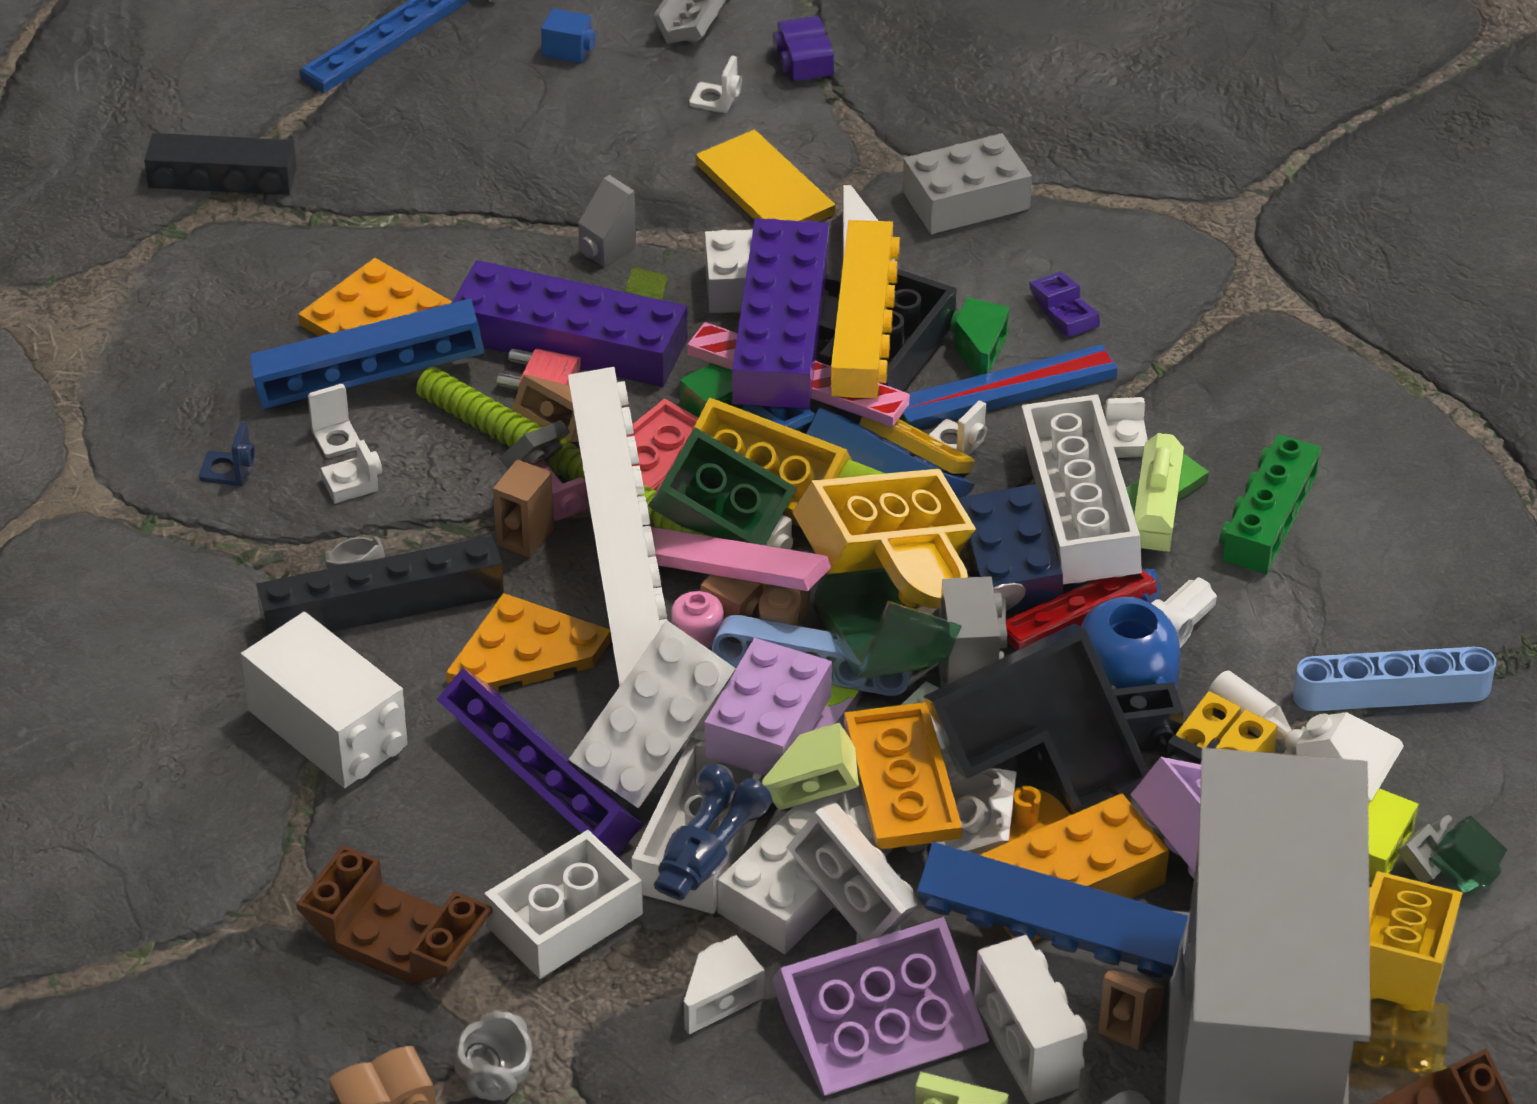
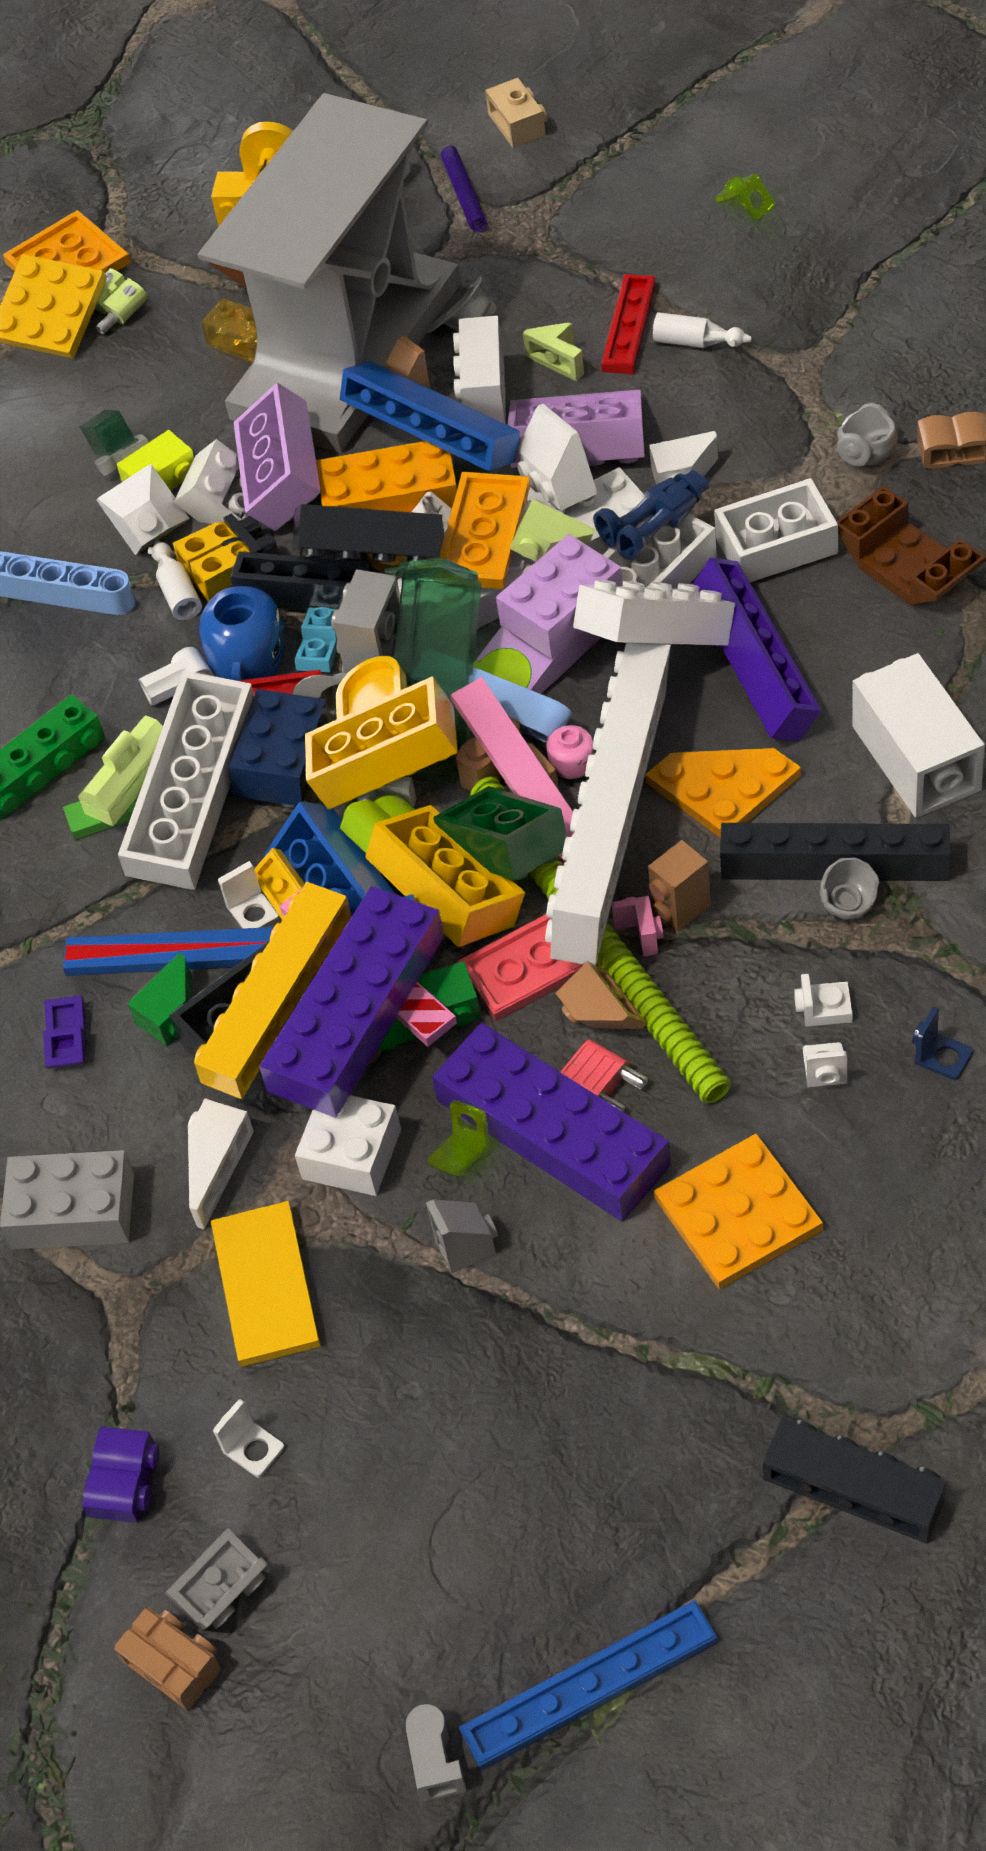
camera: 150 degrees left, 10 degrees up
(367, 353) = (771, 1110): blue brick -> none
(537, 445) = (652, 928): dark grey wing -> none
(567, 35) = (377, 1585): blue brick -> none
(1126, 426) = (101, 873): white bracket -> none
(1409, 939) = (209, 360): yellow brick -> none

